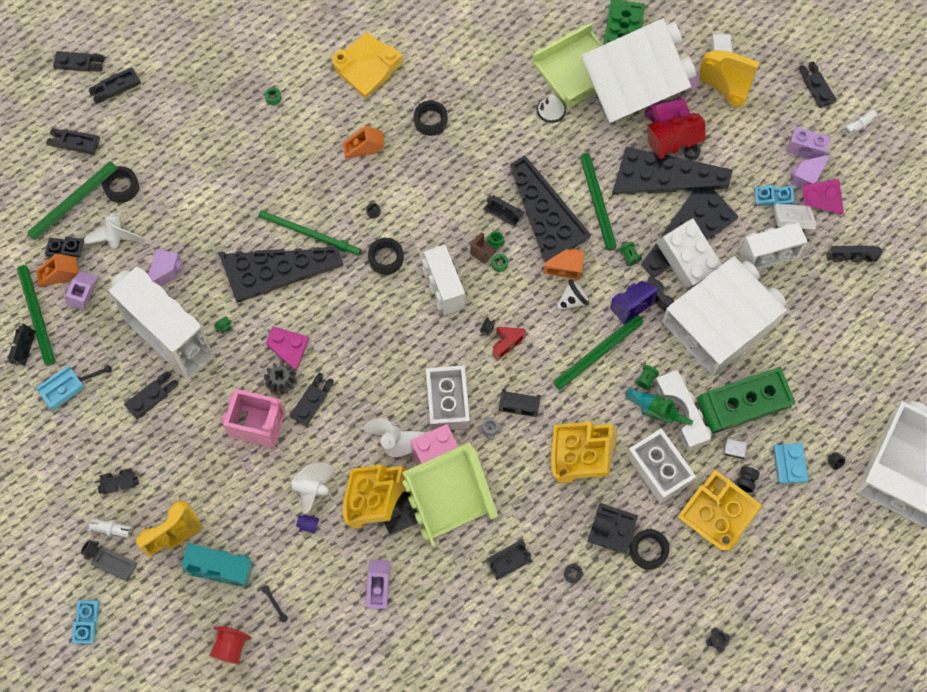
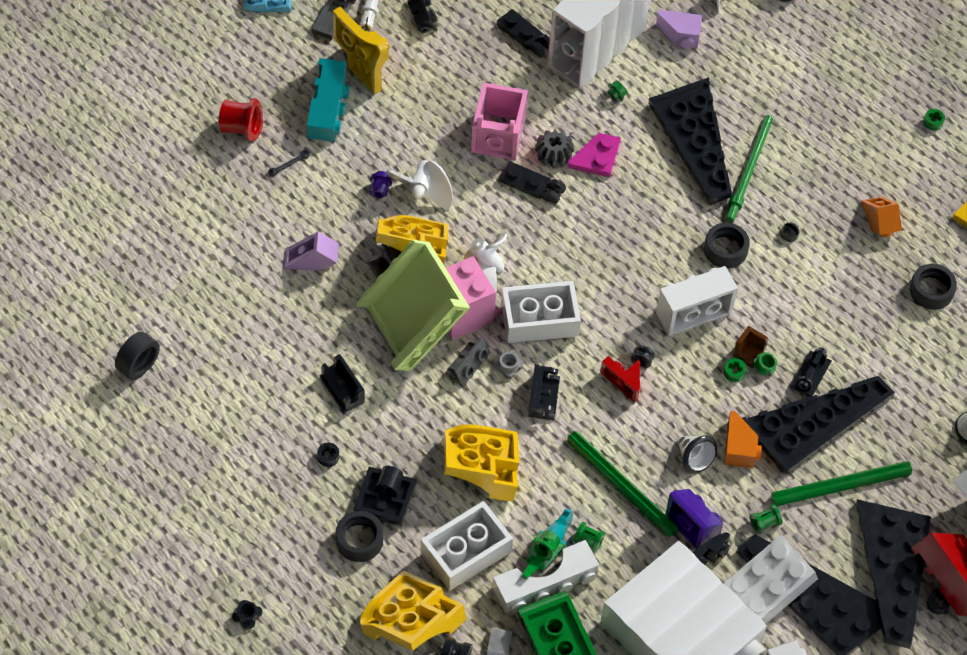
camera: 85 degrees right, 10 degrees down
(494, 462) = (473, 354): none -> dark grey hinge

